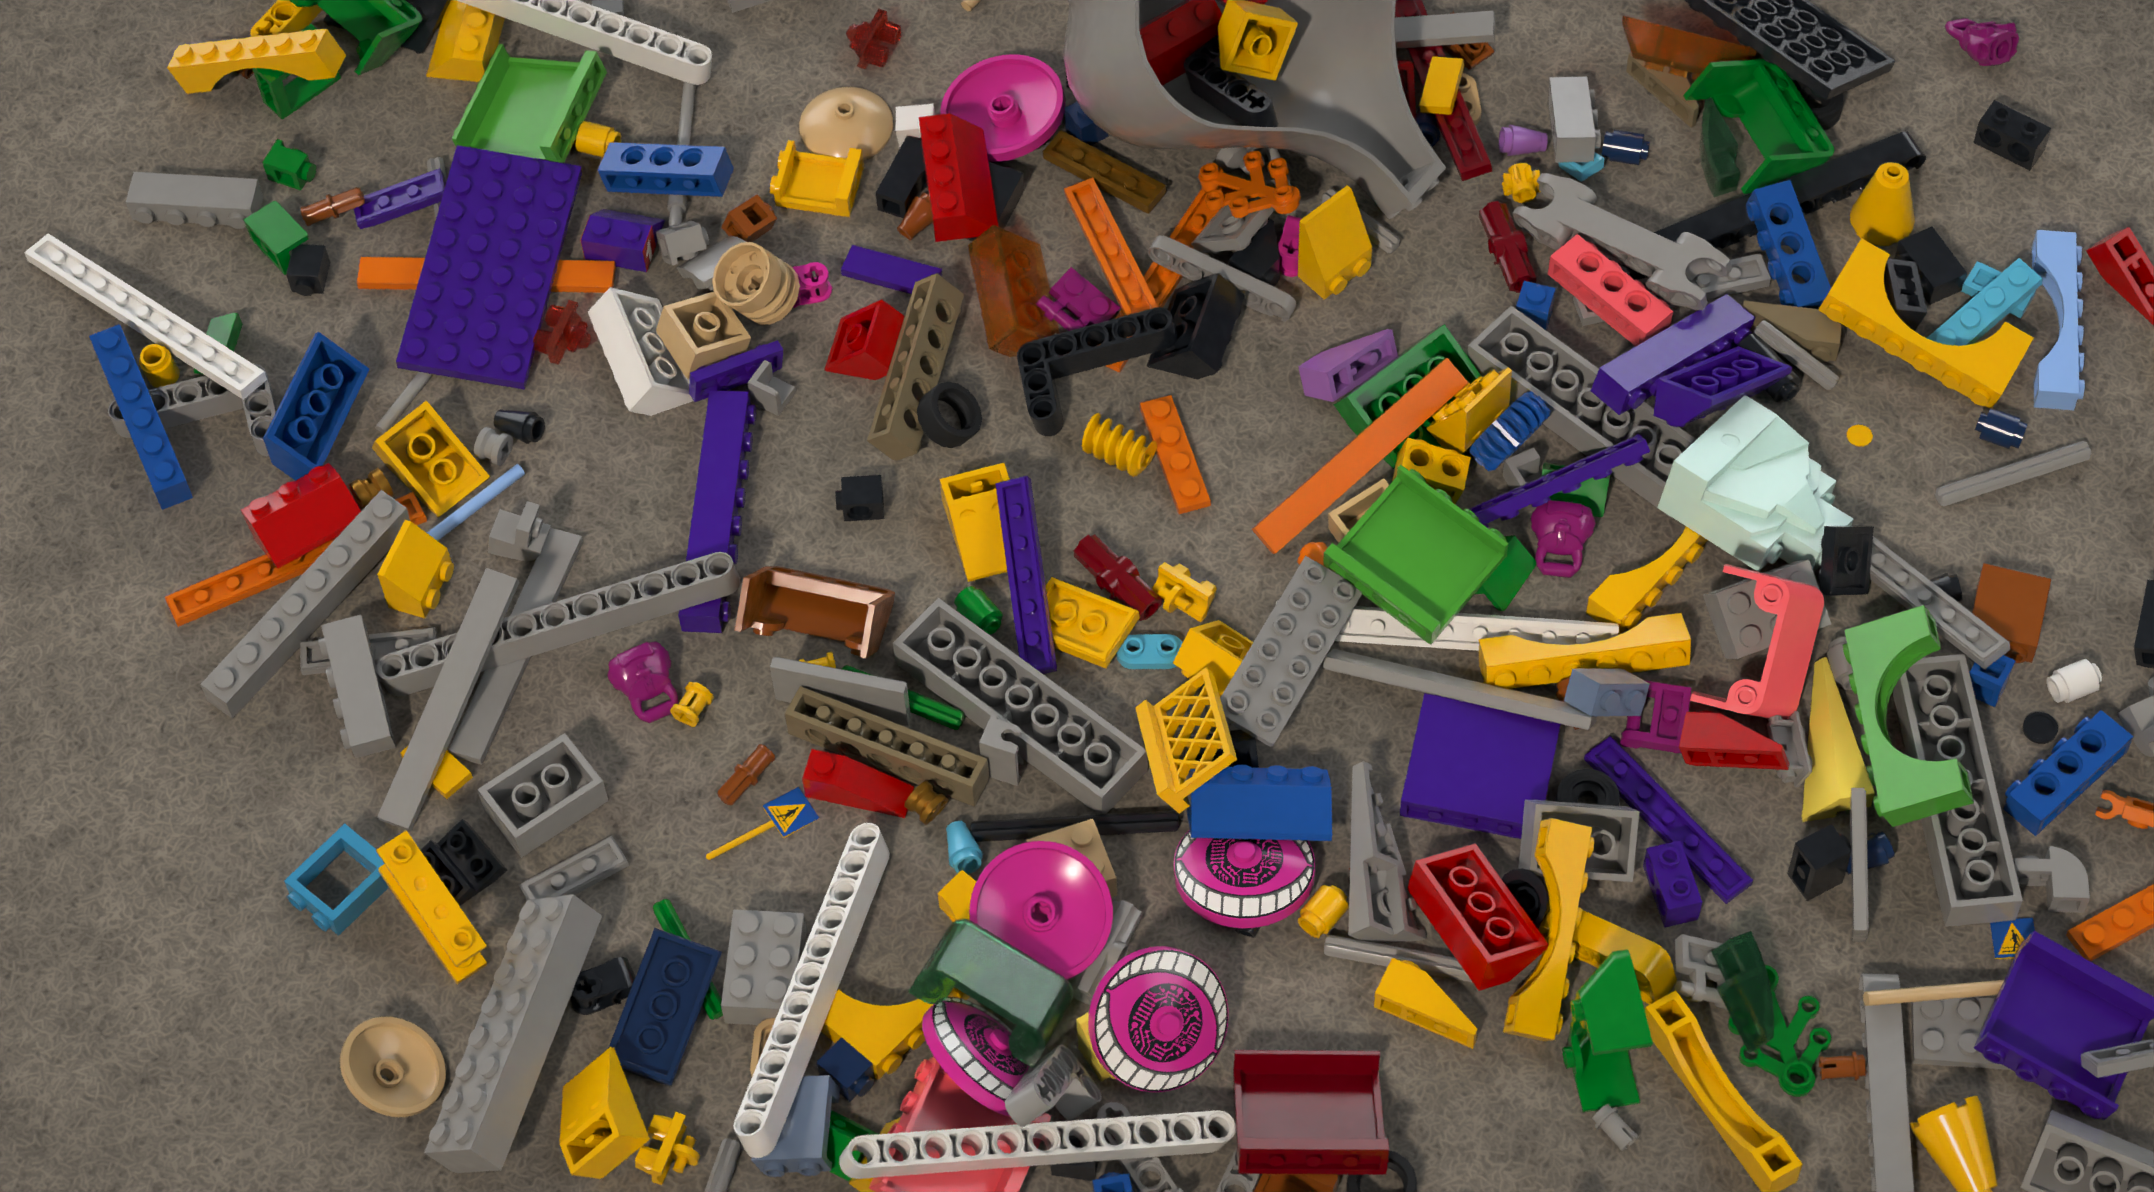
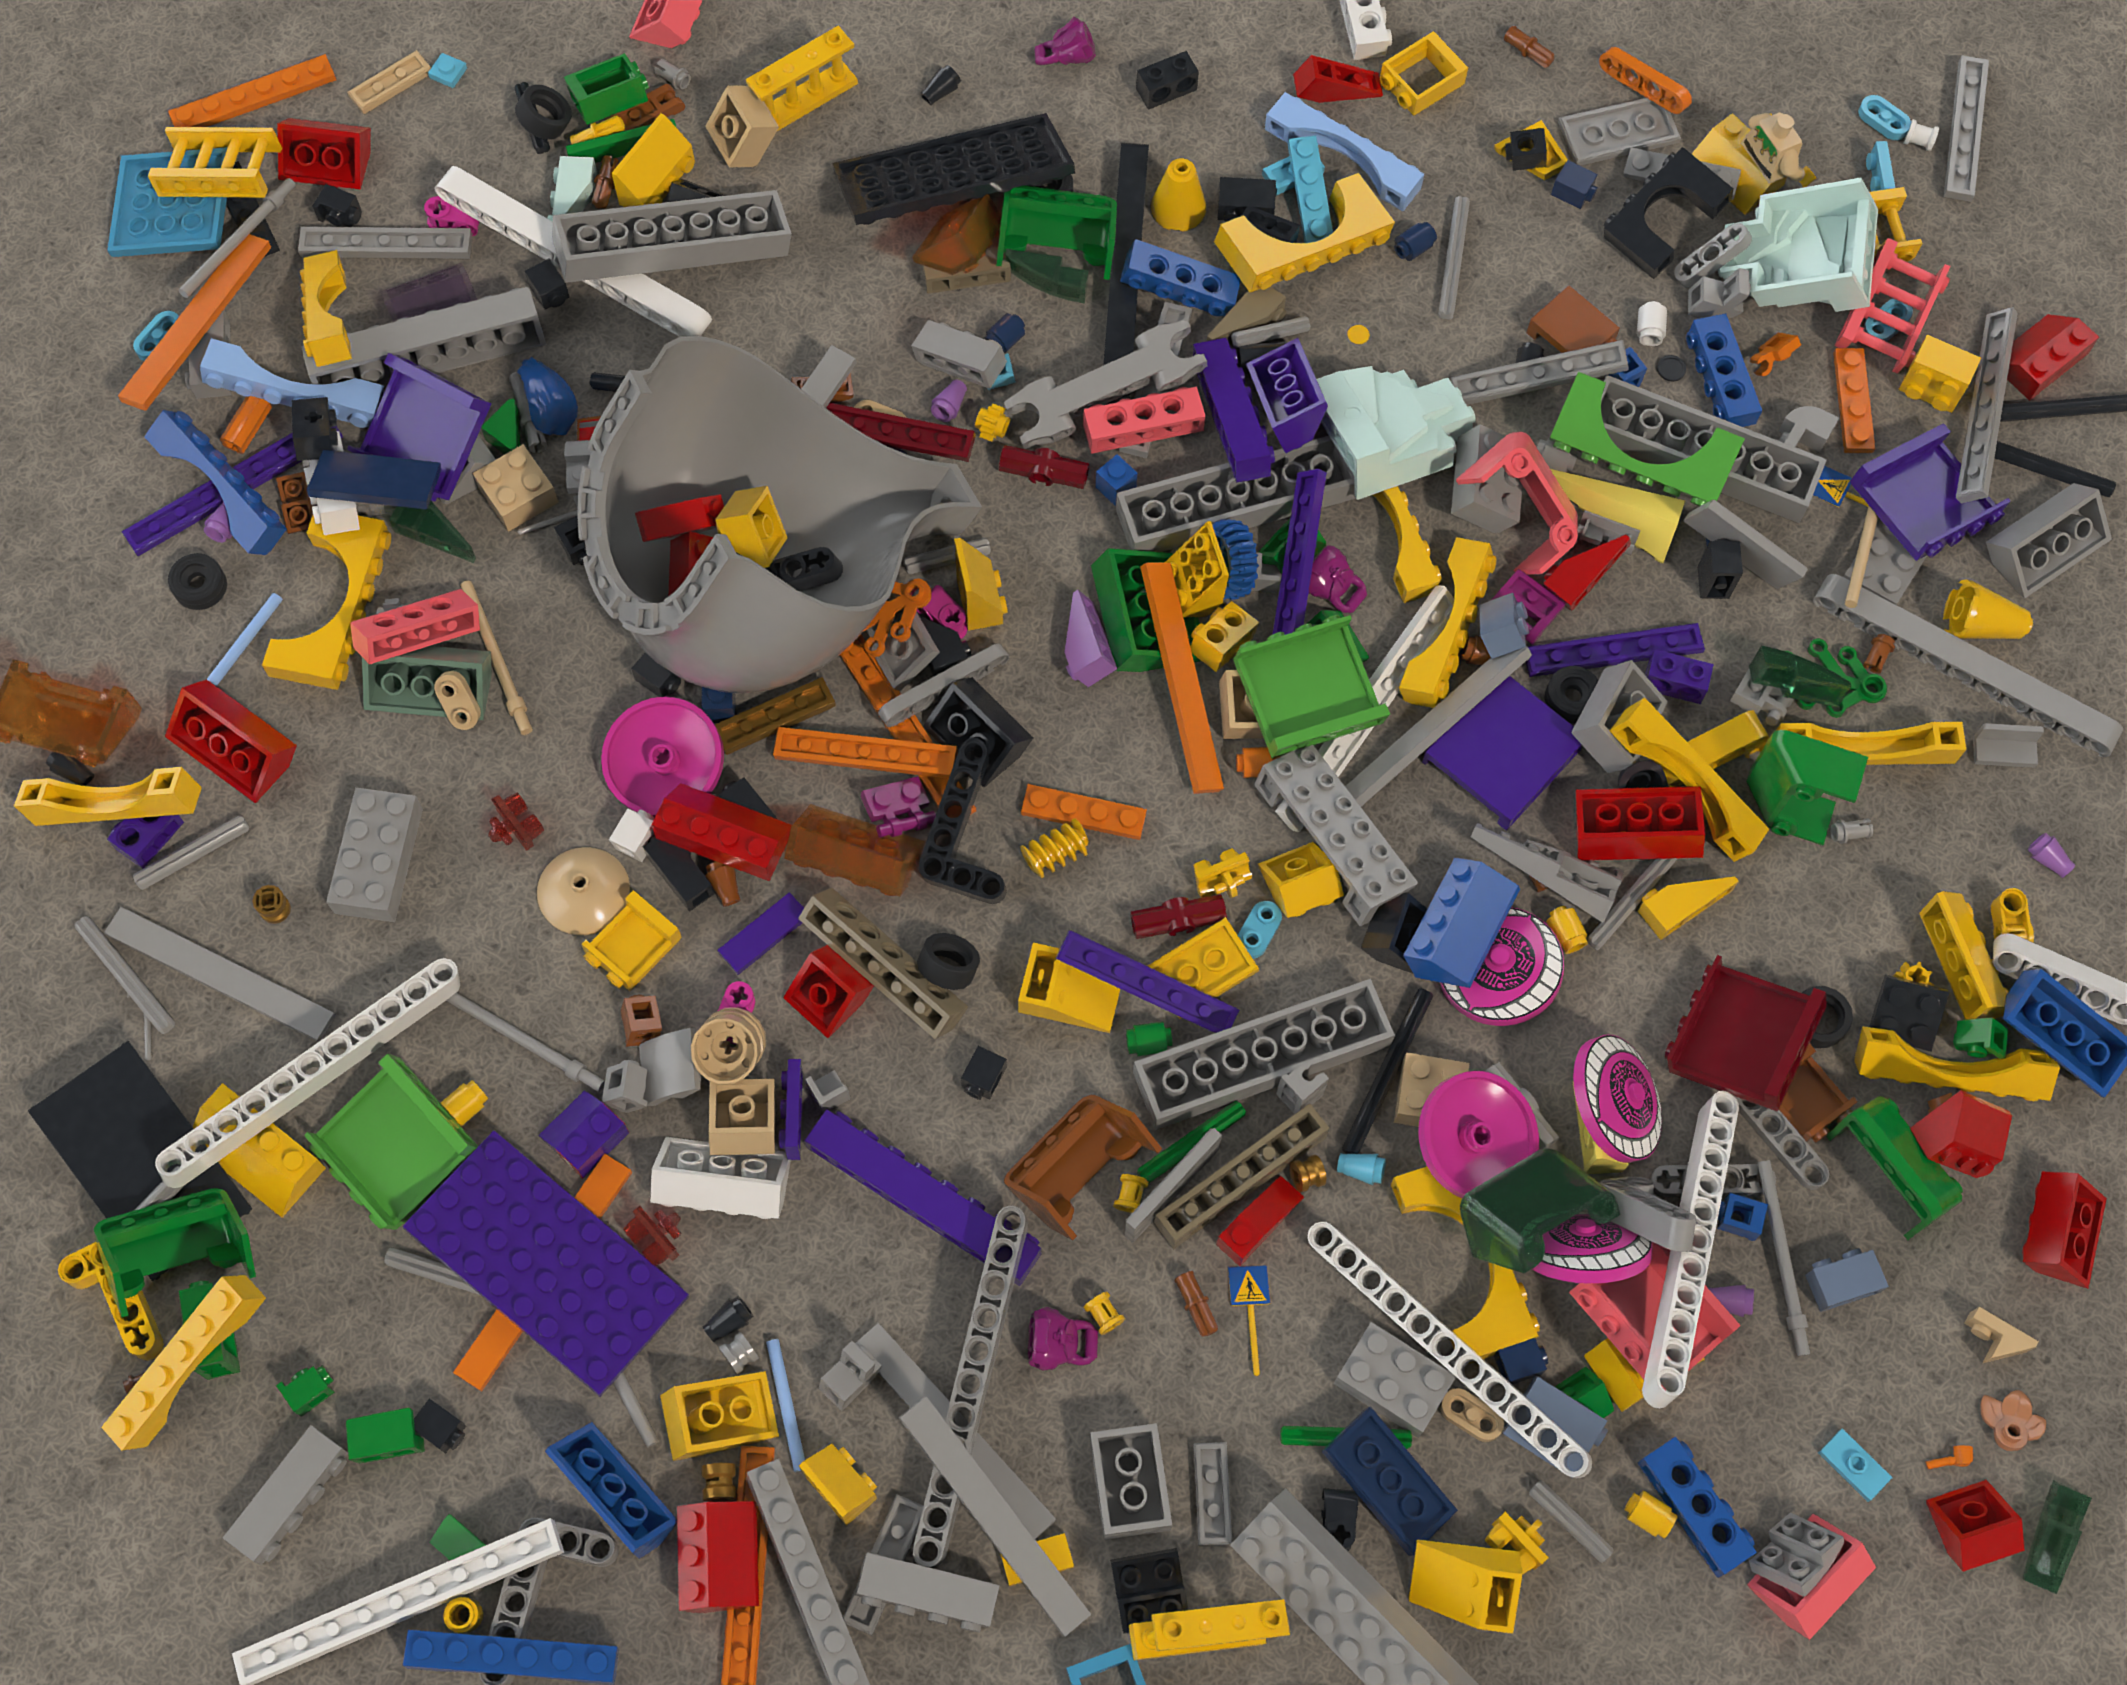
camera: 65 degrees left, 10 degrees up
(332, 206) = (380, 1371): dark orange axle -> none
(401, 199) = (412, 1306): dark purple tile -> none
(666, 169) = (582, 1032): blue brick -> none
(1164, 749) = (1375, 967): yellow fence -> none
(1441, 85) = (873, 421): yellow tile -> none
(1846, 560) = (1478, 399): black plate -> none

